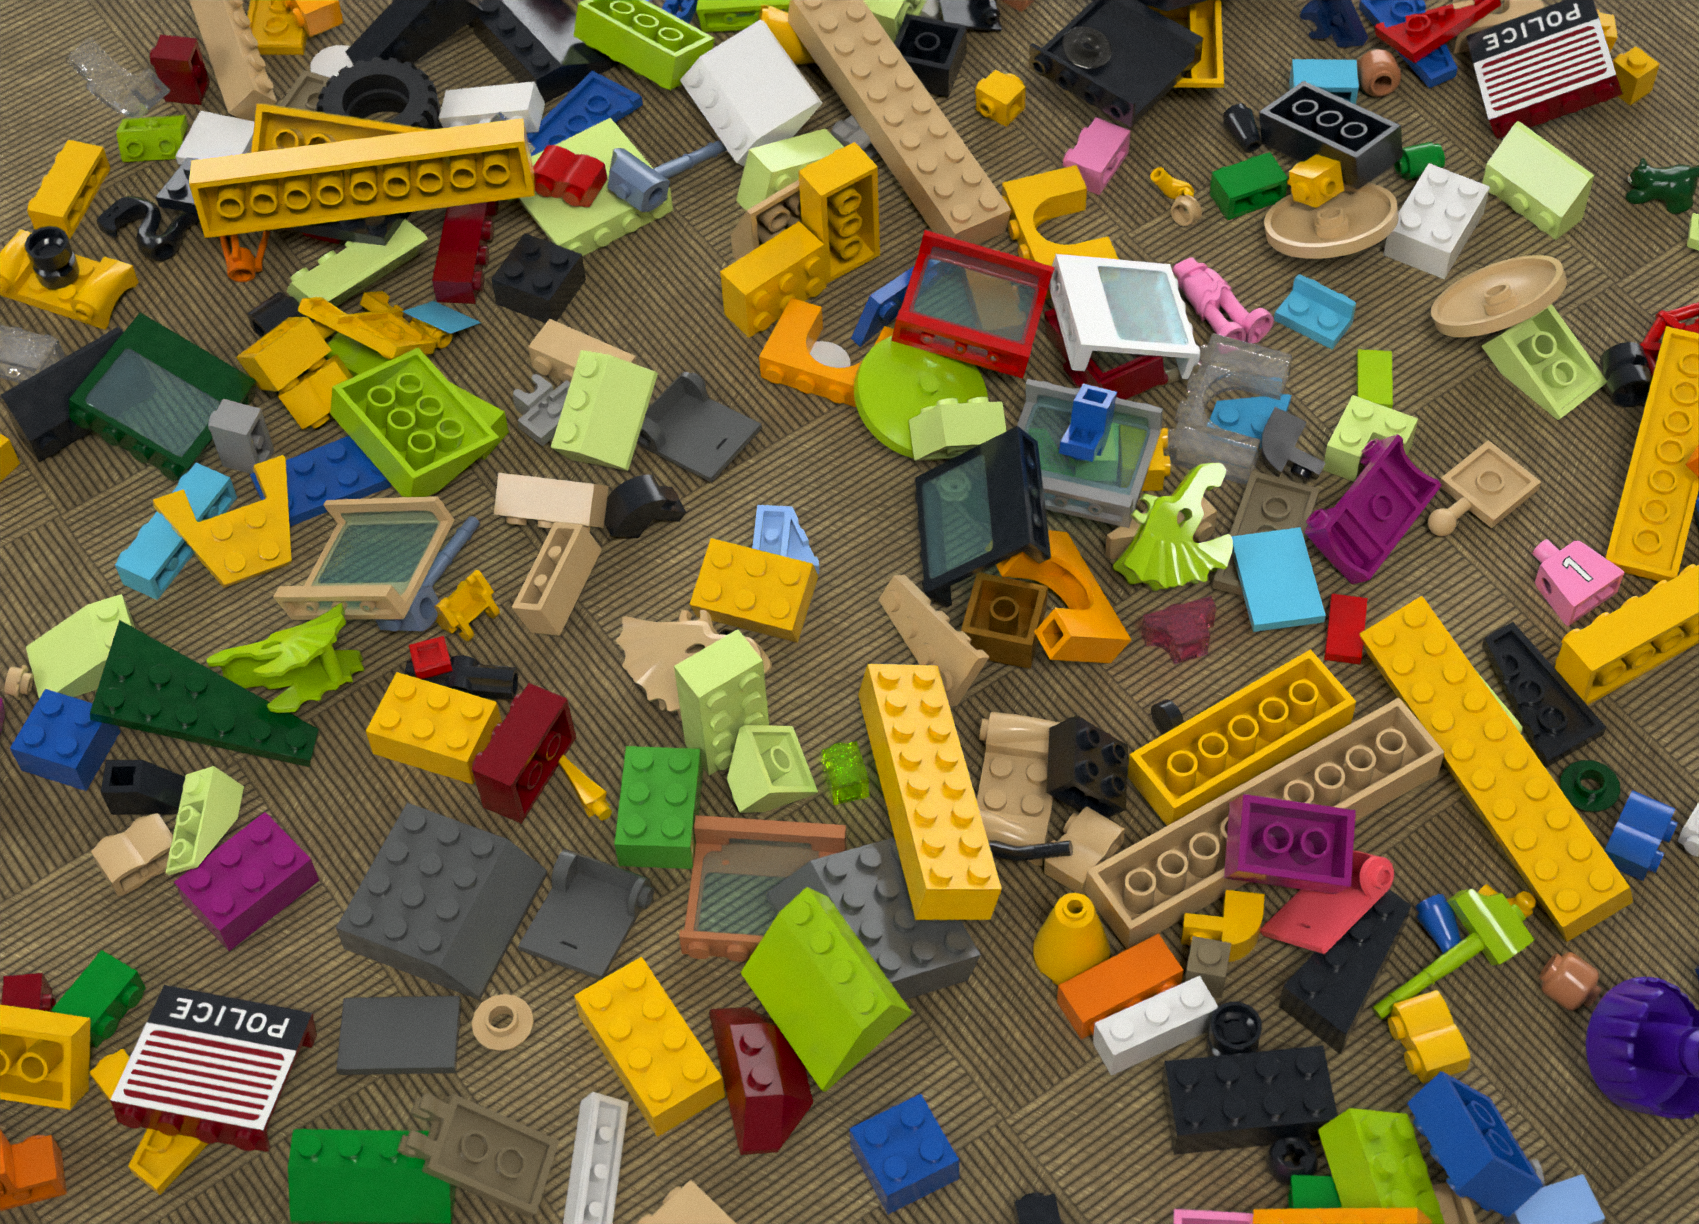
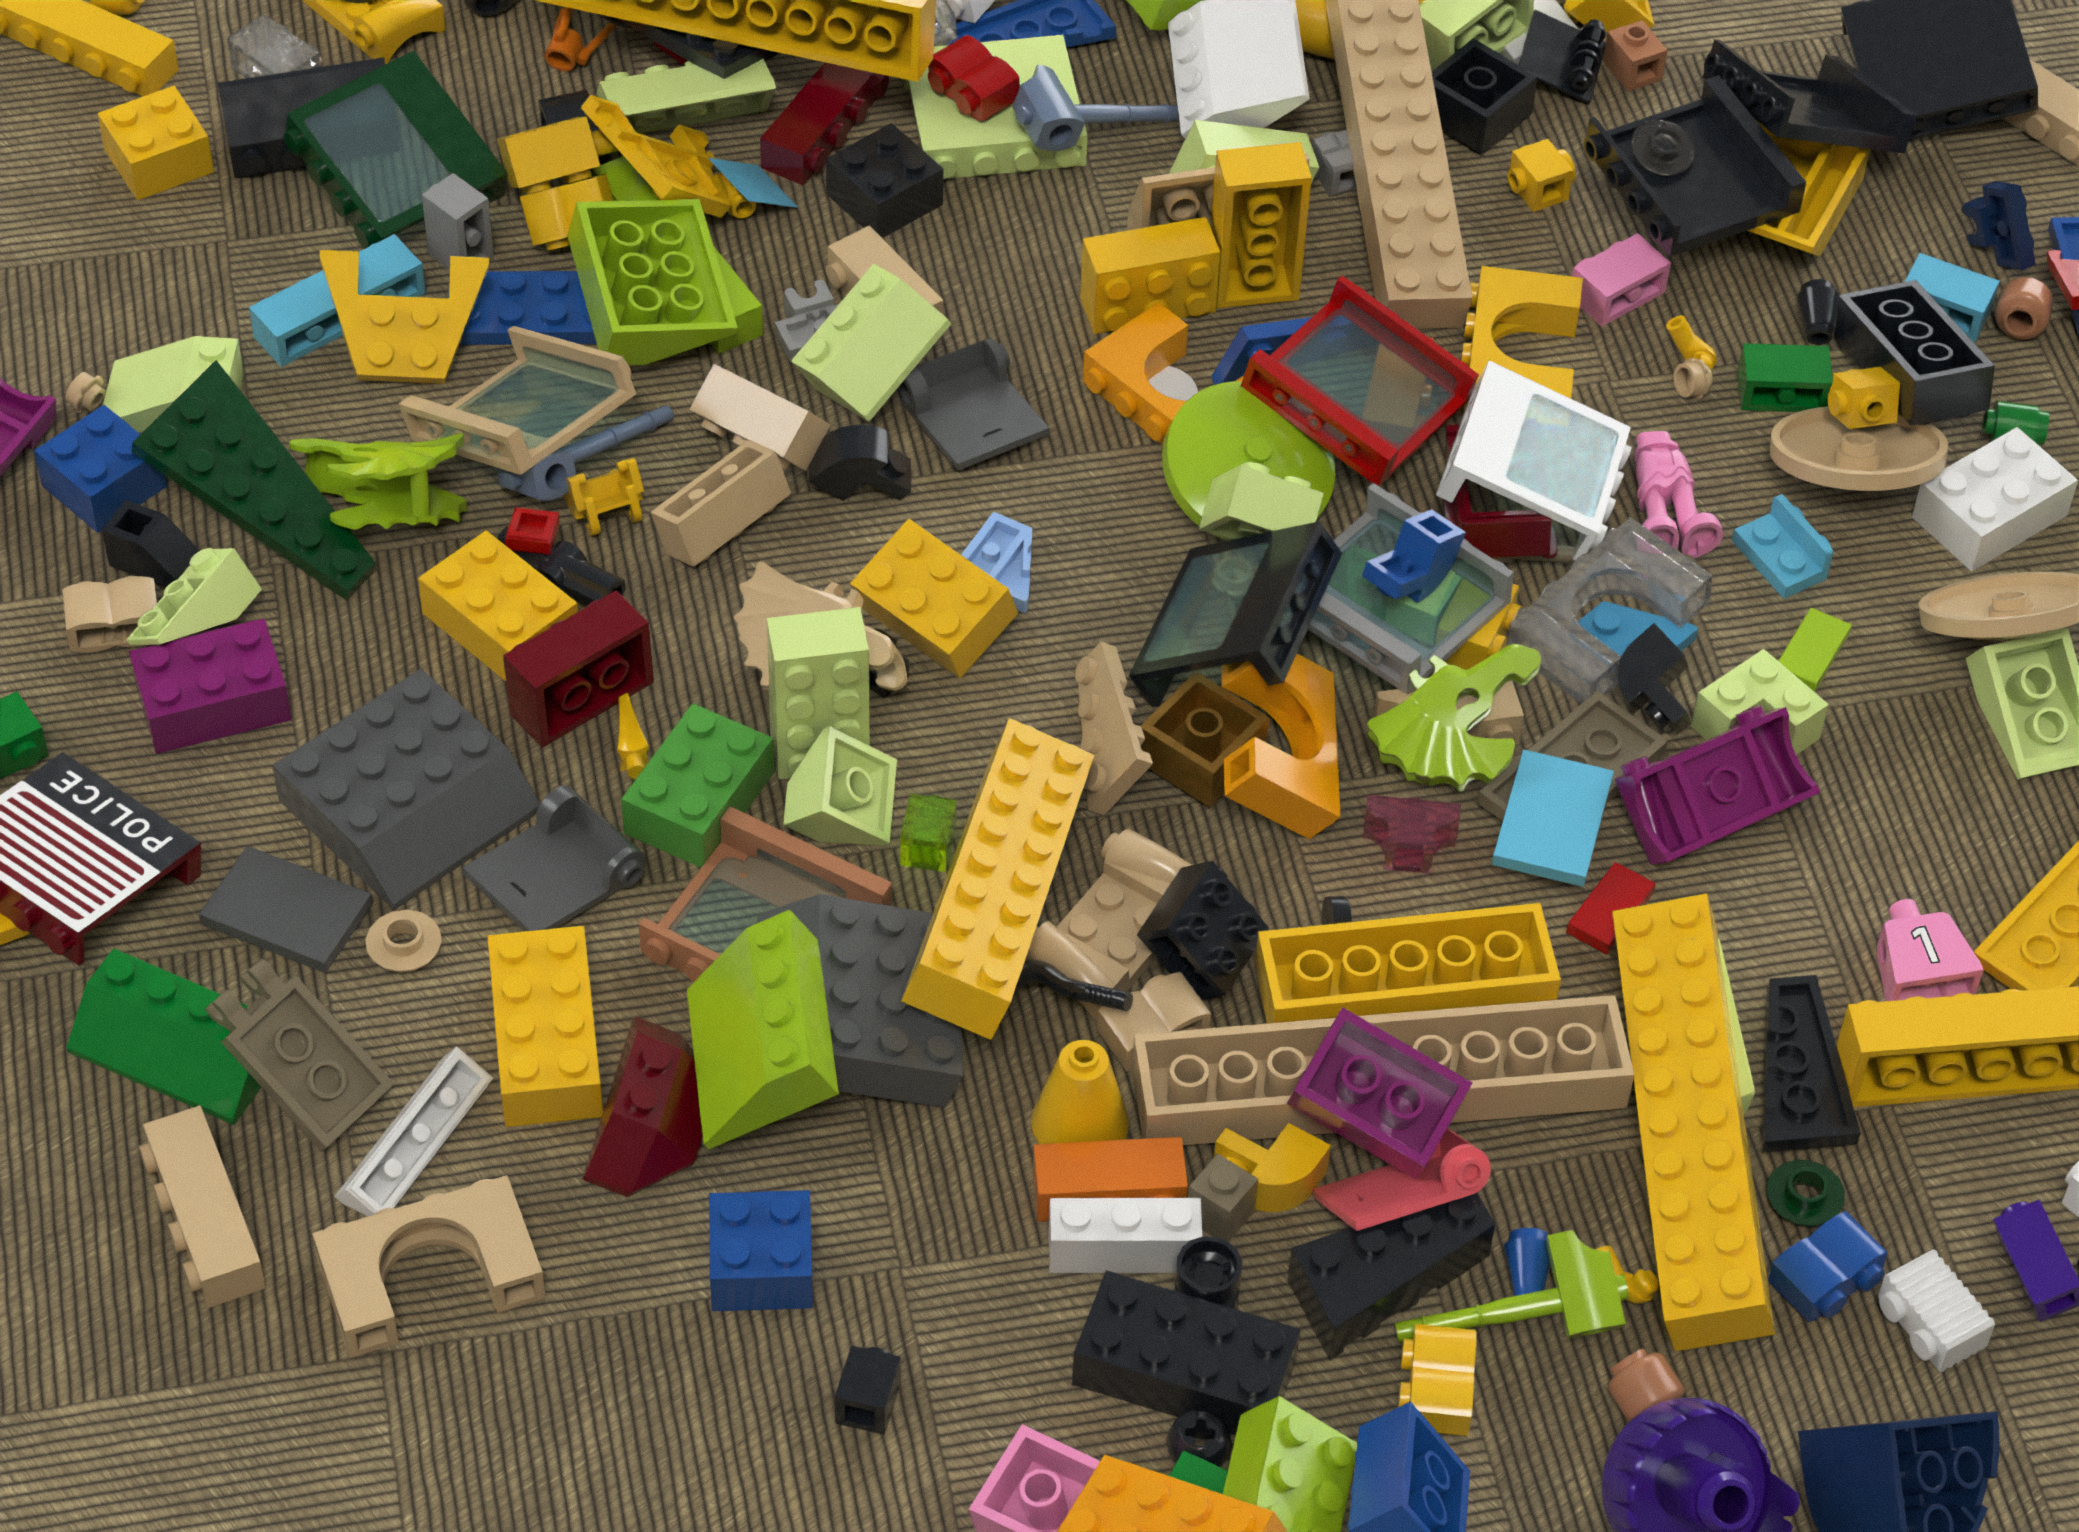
camera: 20 degrees right, 5 degrees down
(1486, 485) = (1876, 815): tan plate -> none

